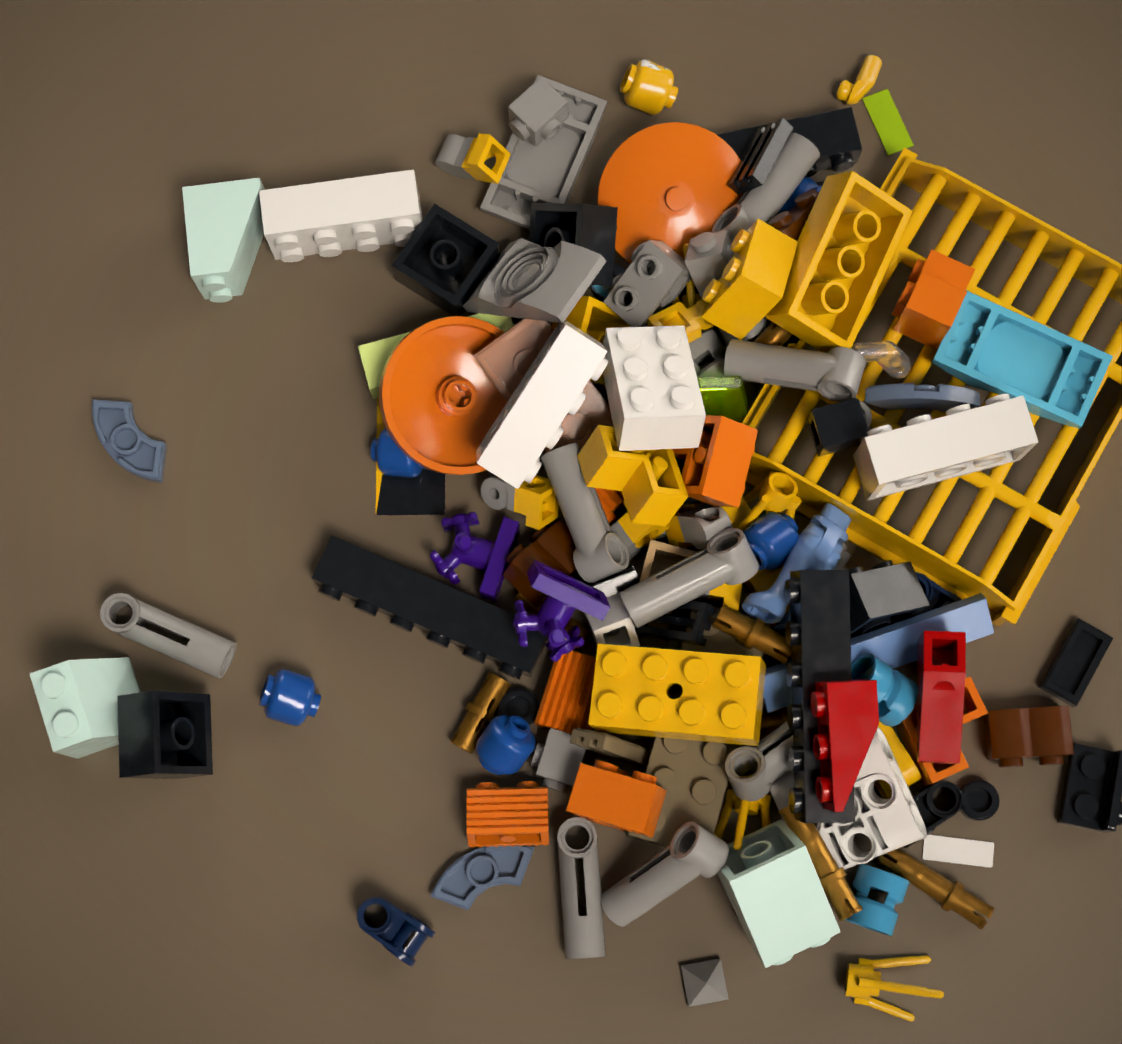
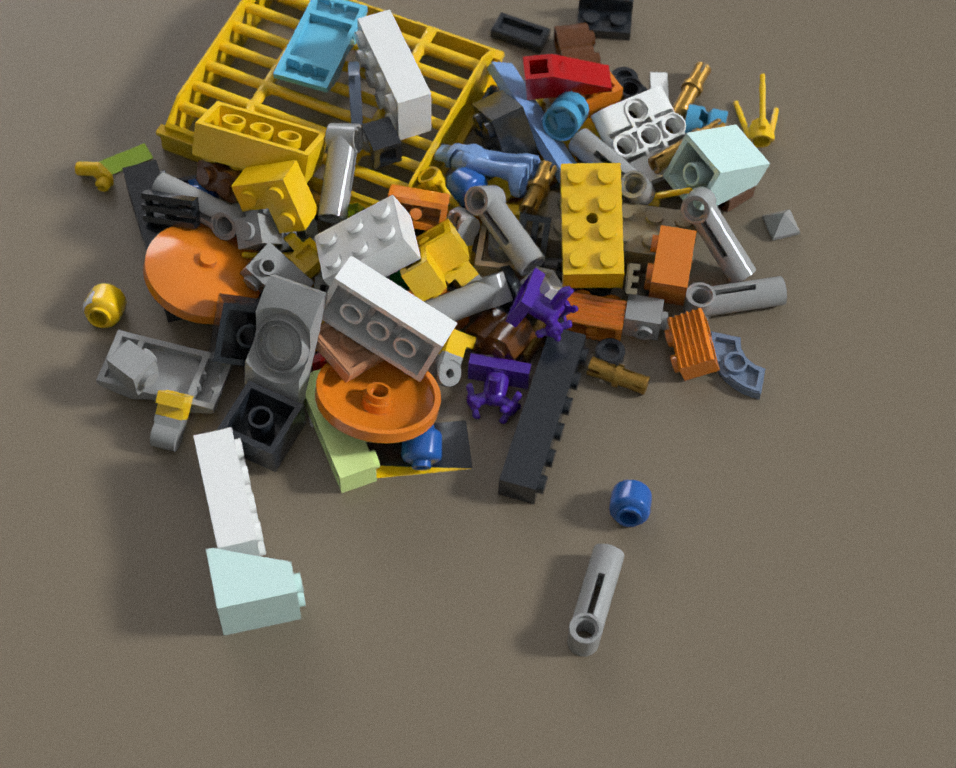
camera: 100 degrees left, 20 degrees down
(82, 702) = (668, 644): light aqua slope -> none
(125, 442) = (434, 661): sand blue tile -> none
(164, 735) = (681, 578): black brick -> none
(396, 930) = (790, 411): dark blue piece -> none
(505, 746) = (640, 350): blue head -> none
(819, 653) = (578, 135): black brick -> none
(846, 727) = (609, 107): red slope -> none
(887, 355) = (326, 116): clear arm -> none
(932, 298) = (283, 90): orange brick -> none

